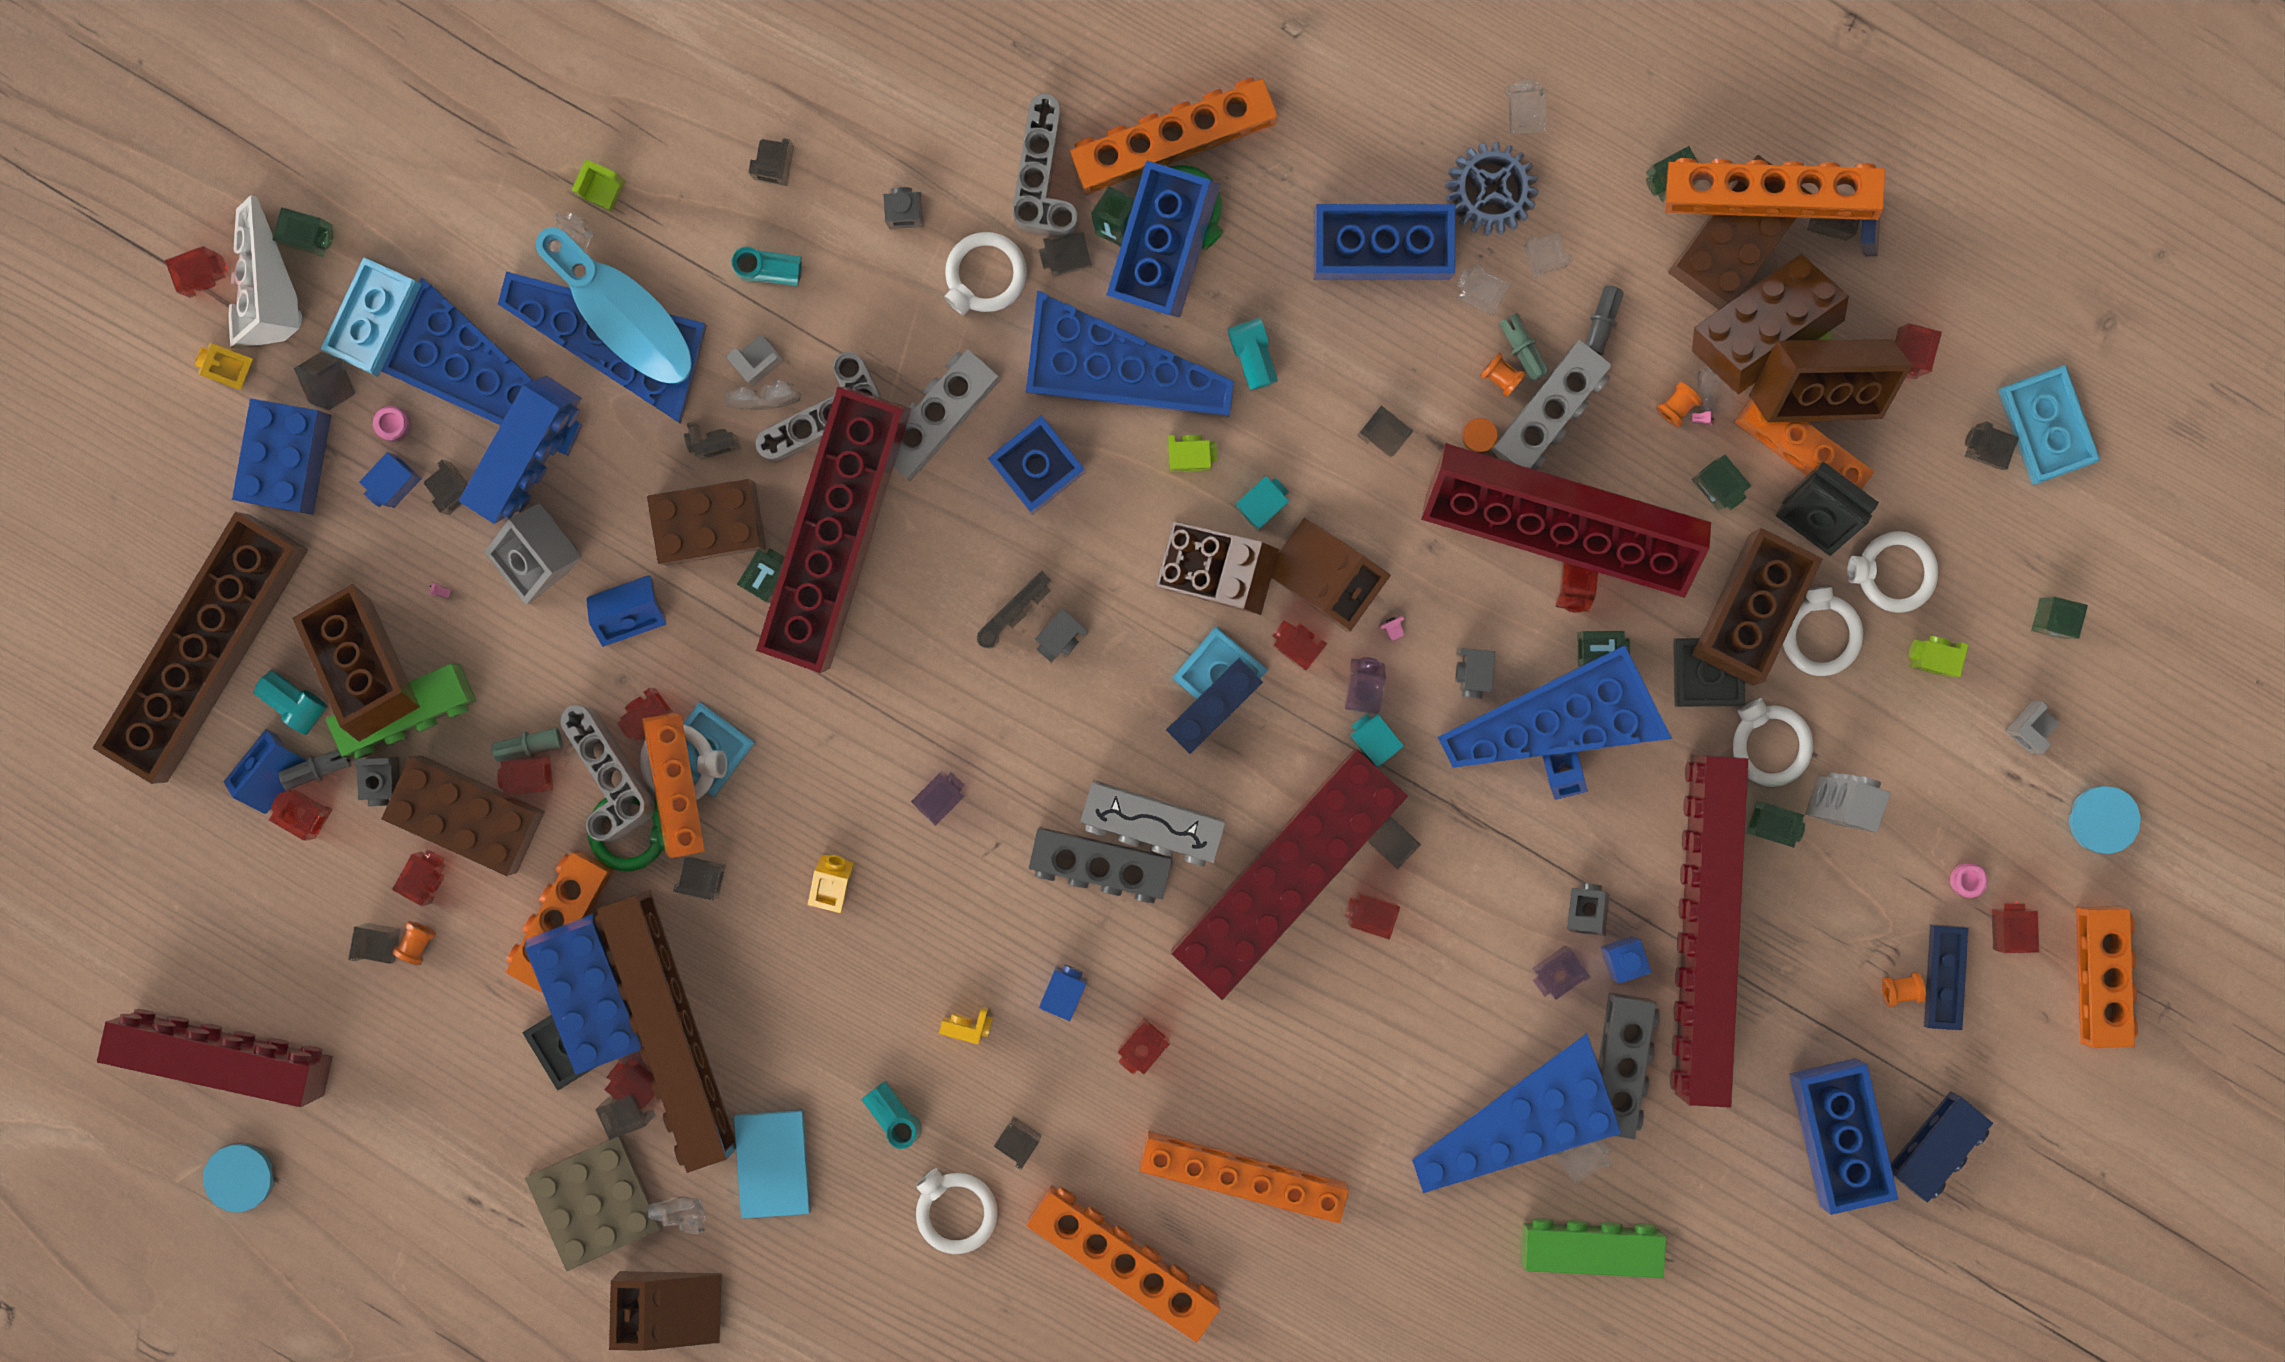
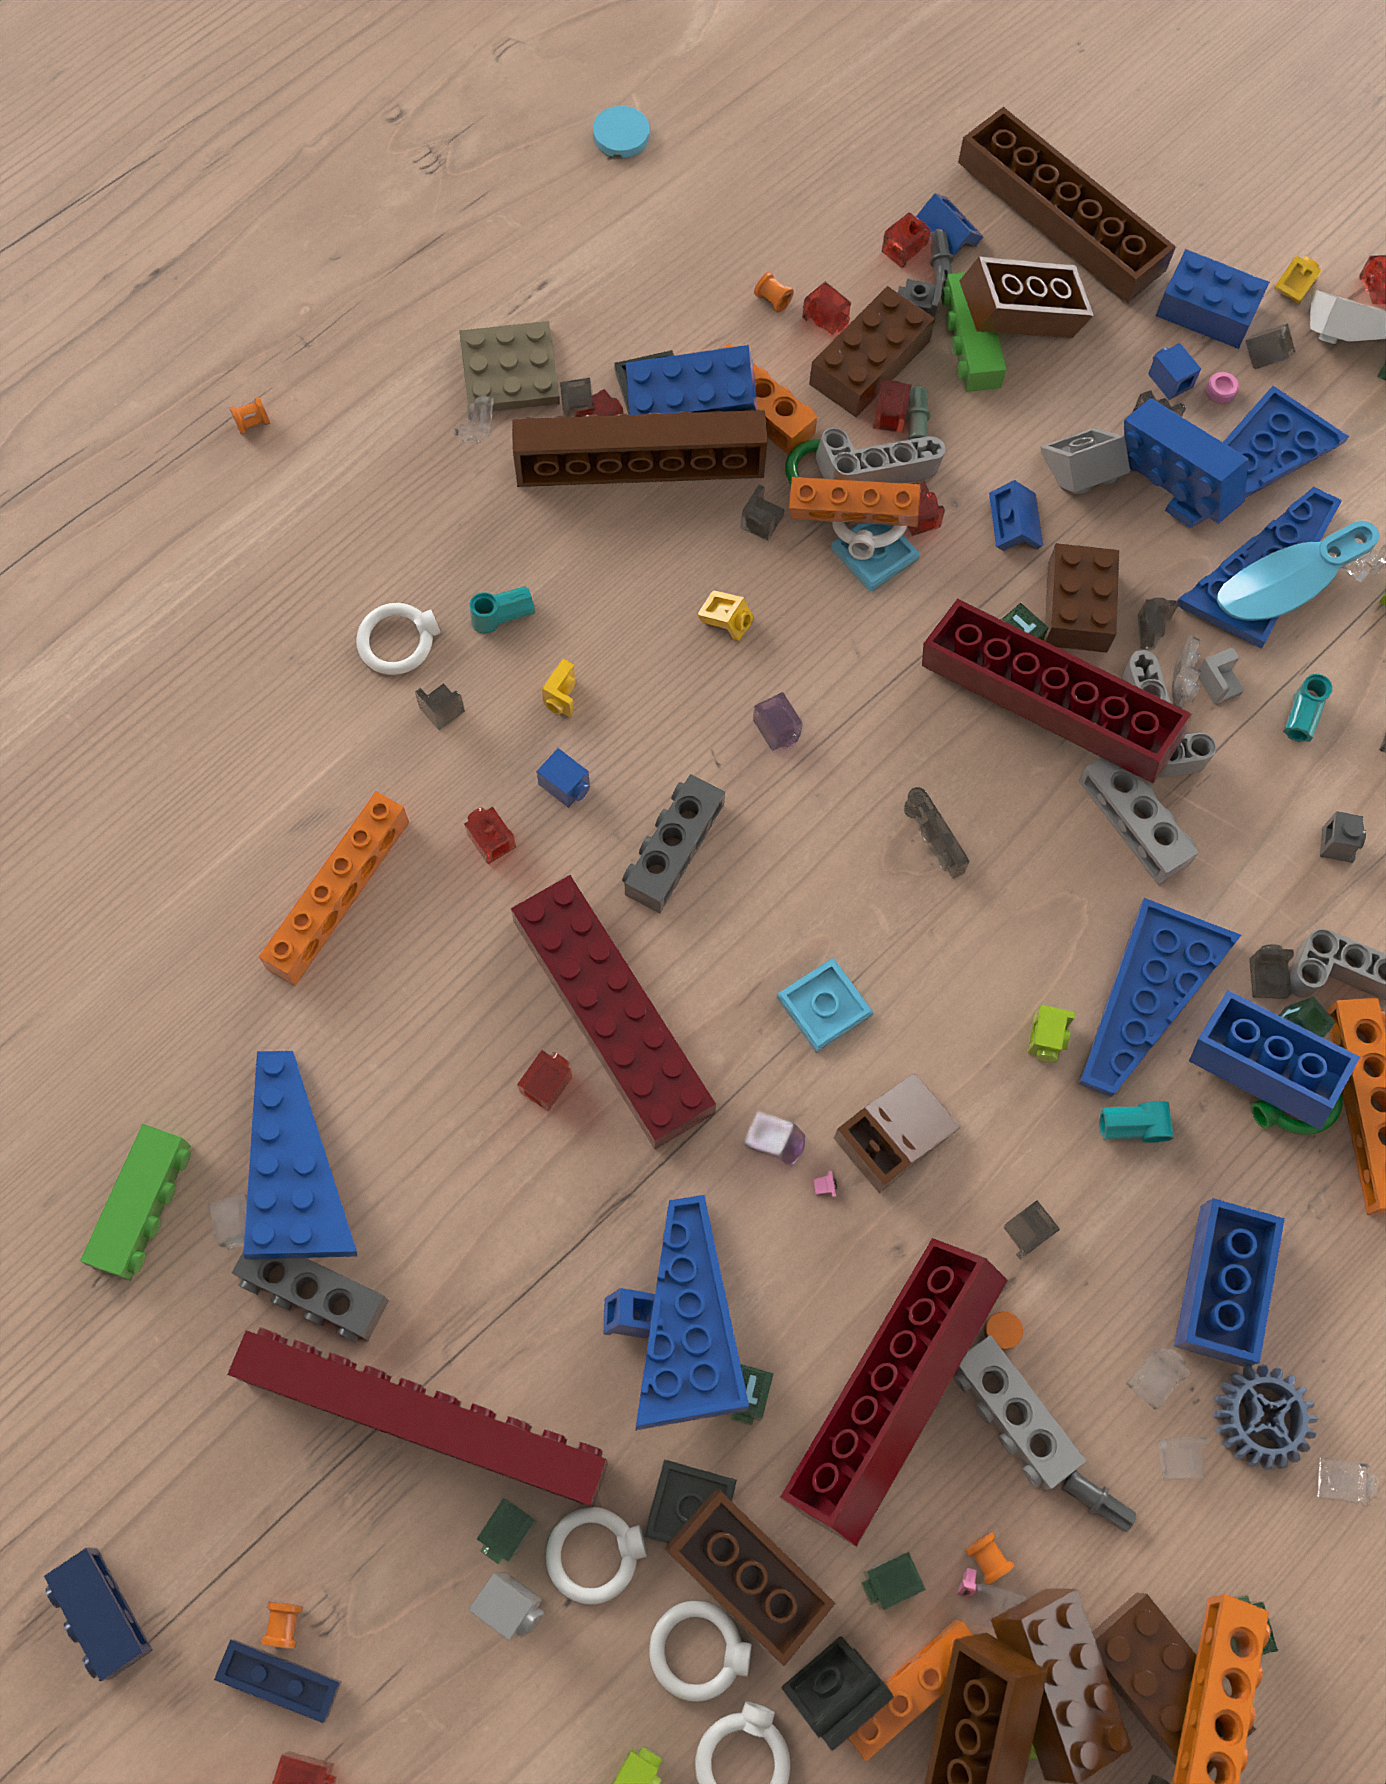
camera: 110 degrees right, 20 degrees down
(215, 1058) = (723, 131): dark red brick -> none
(298, 707) = (1013, 247): teal piece -> none
(371, 316) = (1320, 392): medium azure tile -> none
(374, 943) = (785, 260): clear smoke panel -> none
(436, 589) = (1070, 383): bright pink piece -> none
(664, 1310) = (399, 387): reddish brown slope -> none
(772, 1164) = (492, 506): medium azure tile -> none
(960, 297) = (1247, 866): white piece -> none
(1036, 465) = (1071, 886): blue brick -> none
(1059, 636) = (902, 866): dark grey brick -> none
(1152, 822) = (701, 893): light grey brick -> none
(1189, 1319) = (301, 745): orange brick -> none
(1214, 705) = (796, 986): dark blue plate -> none
(1217, 567) = (929, 1030): reddish brown slope -> none
(1263, 502) = (985, 1089): teal brick -> none
(1297, 644) = (834, 1082): clear red brick -> none
(1375, 739) = (719, 1131): teal brick -> none
(1394, 842) = (612, 1119): clear smoke panel -> none
(1475, 672) = (759, 1252): dark grey brick -> none
(1502, 374) = (1063, 1371): orange bush -> none
(1524, 348) = (1087, 1403): sand green axle -> none
(1564, 960) = (433, 1260): clear purple brick -> none
(1576, 588) = (818, 1384): clear red bracket -> none
(1578, 920) = (484, 1287): dark grey brick -> none
(1626, 959) = (417, 1321): blue brick -> none
(1843, 1136) = (150, 1503): blue brick -> none
(1968, 880) = (374, 1744): bright pink tile -> none

